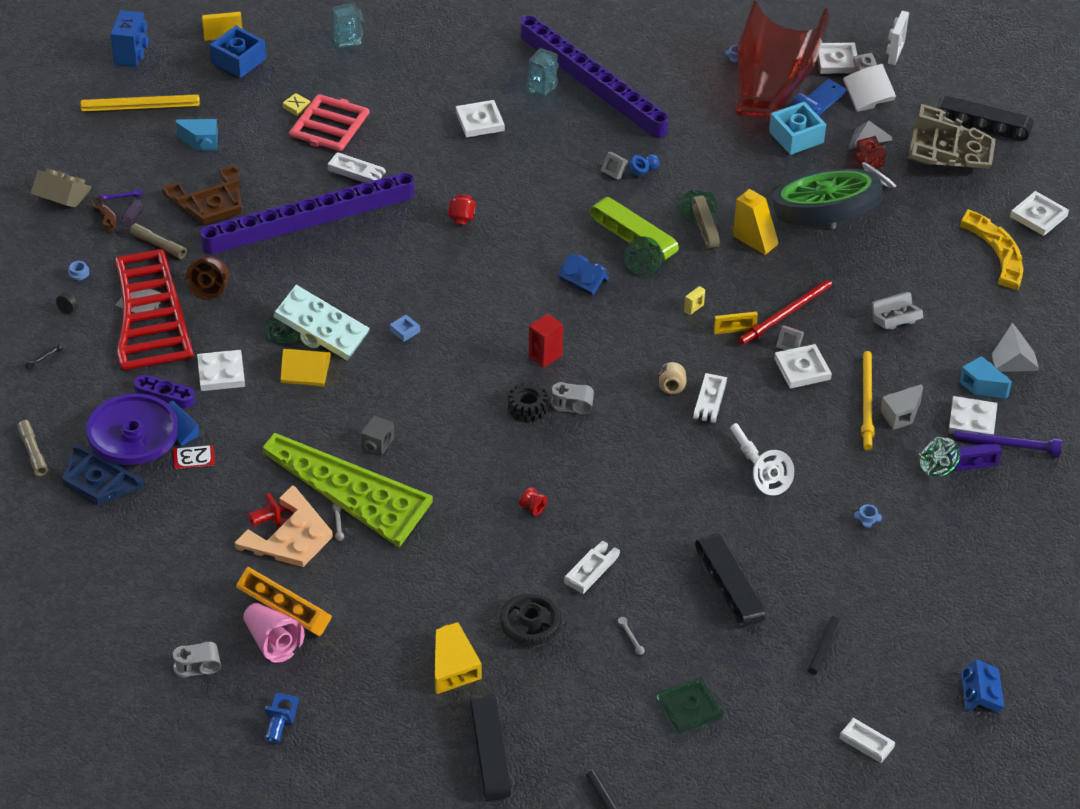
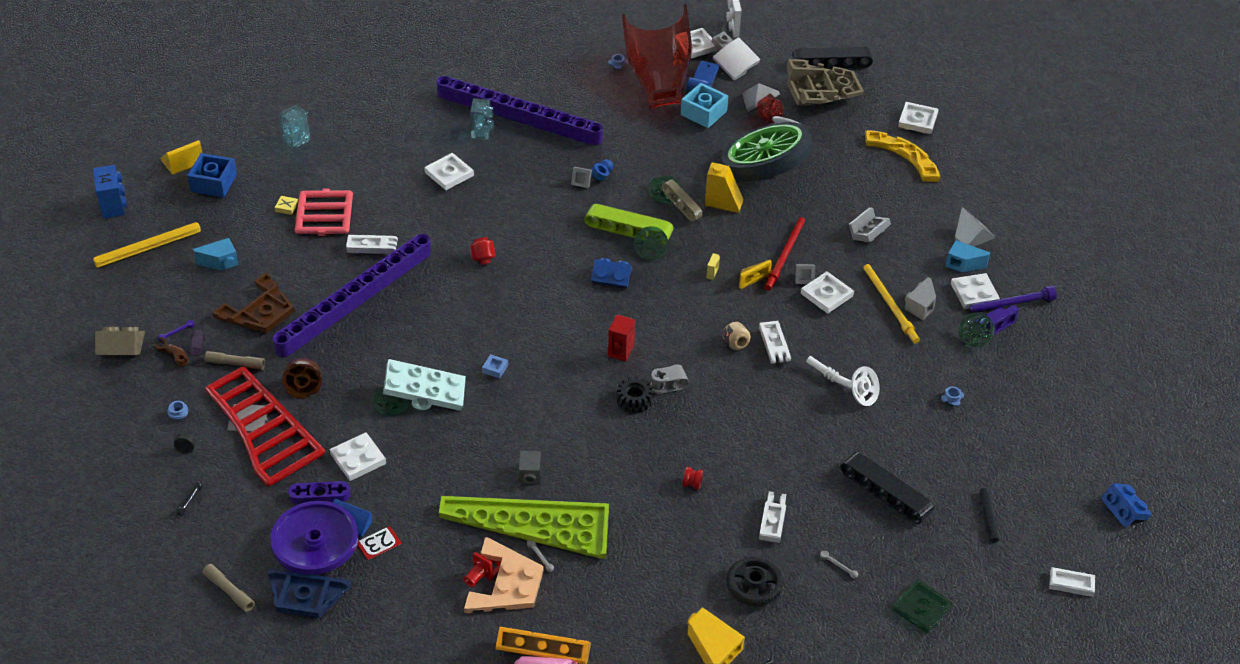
camera: 25 degrees left, 0 degrees up
(304, 367) = (430, 428): yellow slope -> none

